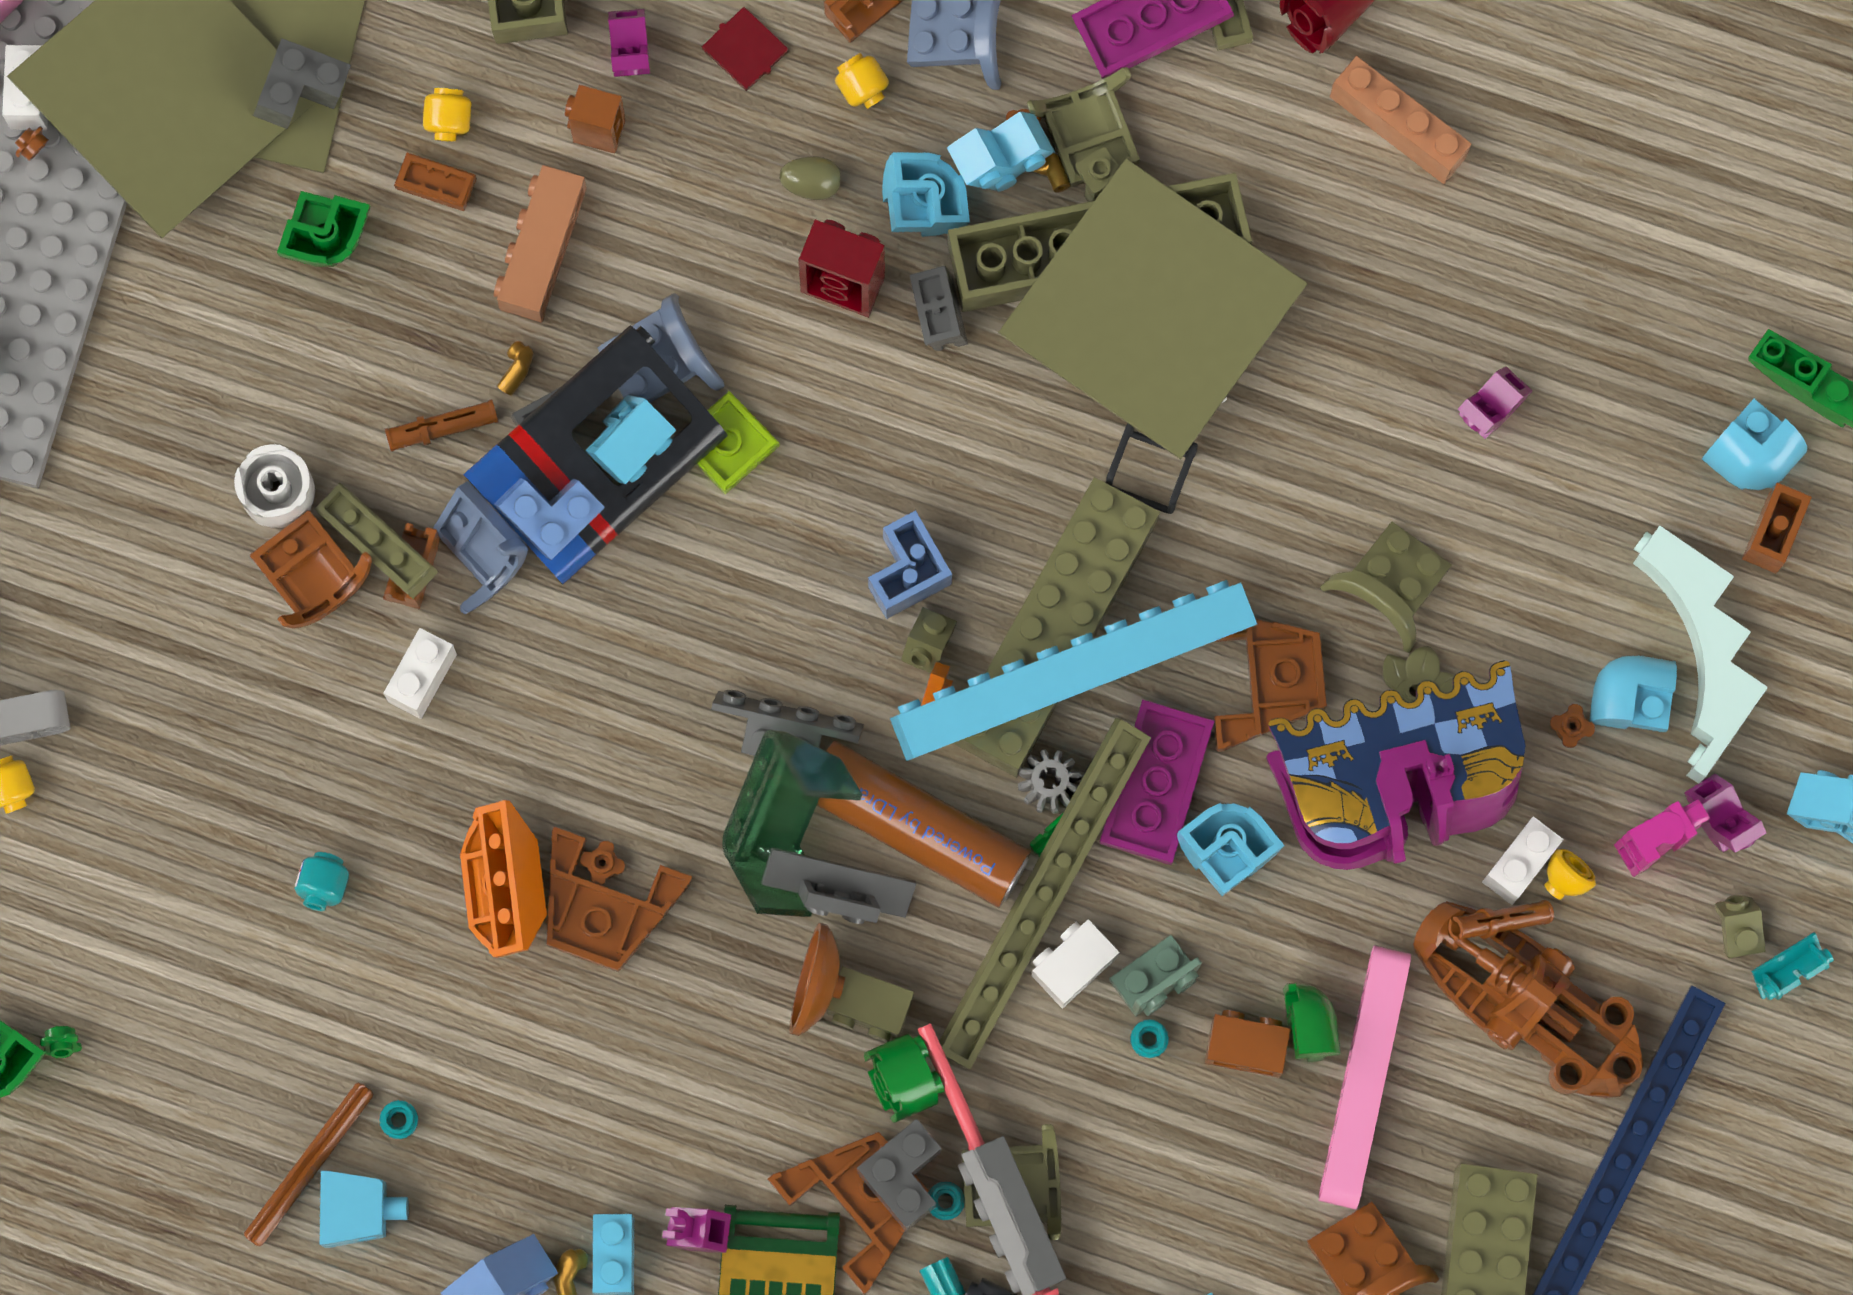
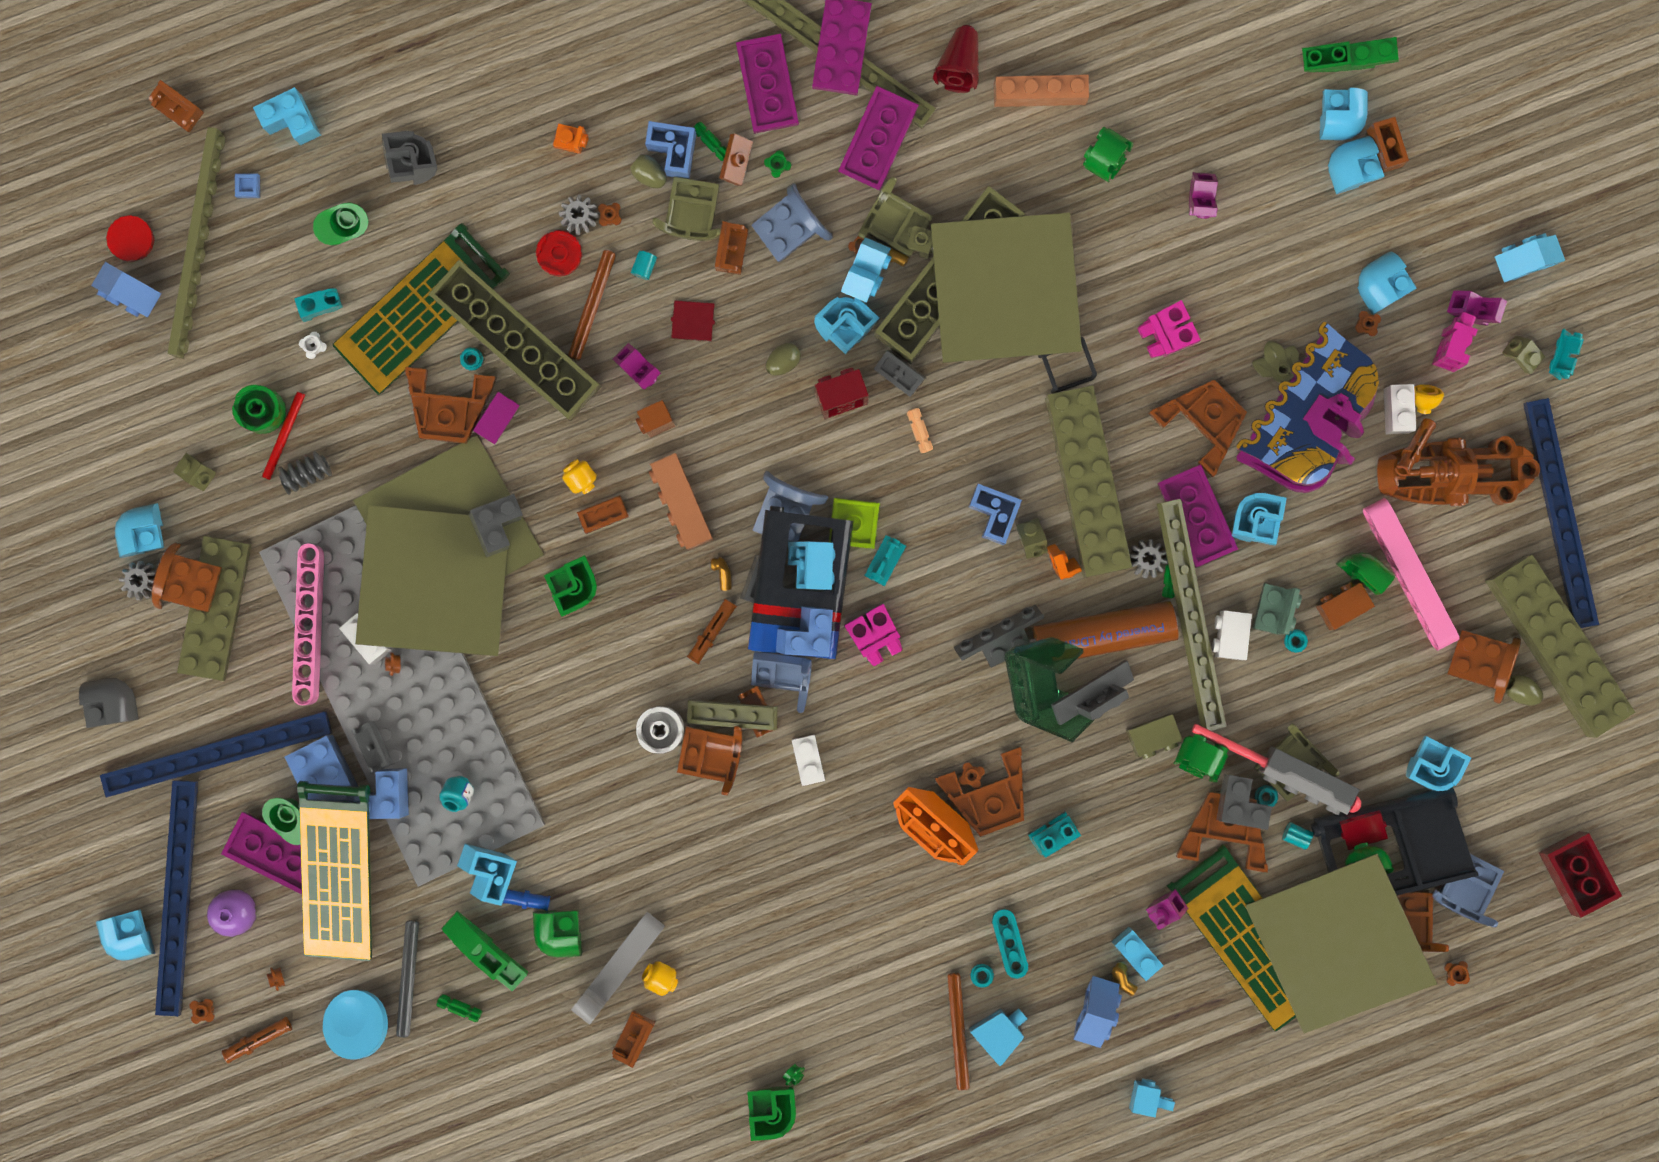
camera: 35 degrees left, 10 degrees up
(321, 881) = (849, 897): teal head -> none
(469, 1090) = (1014, 953): none -> teal plate
(632, 596) = (873, 637): none -> dark pink hips
(641, 1016) = (1052, 838): none -> teal hips
(725, 517) = (885, 560): none -> teal hinge
(817, 981) = (1124, 749): dark orange dish -> none
(861, 81) = (765, 290): yellow head -> none
(904, 398) = (919, 430): none -> light nougat axle
(1072, 671) = (1121, 499): medium azure brick -> none
(1317, 530) = (1166, 331): none -> dark pink hips
(1394, 578) = (1226, 322): olive piece -> none
(1416, 257) = (1107, 155): none -> green brick
(1718, 521) = (1355, 164): none -> medium azure brick
(1724, 689) = (1426, 247): light aqua arch -> none

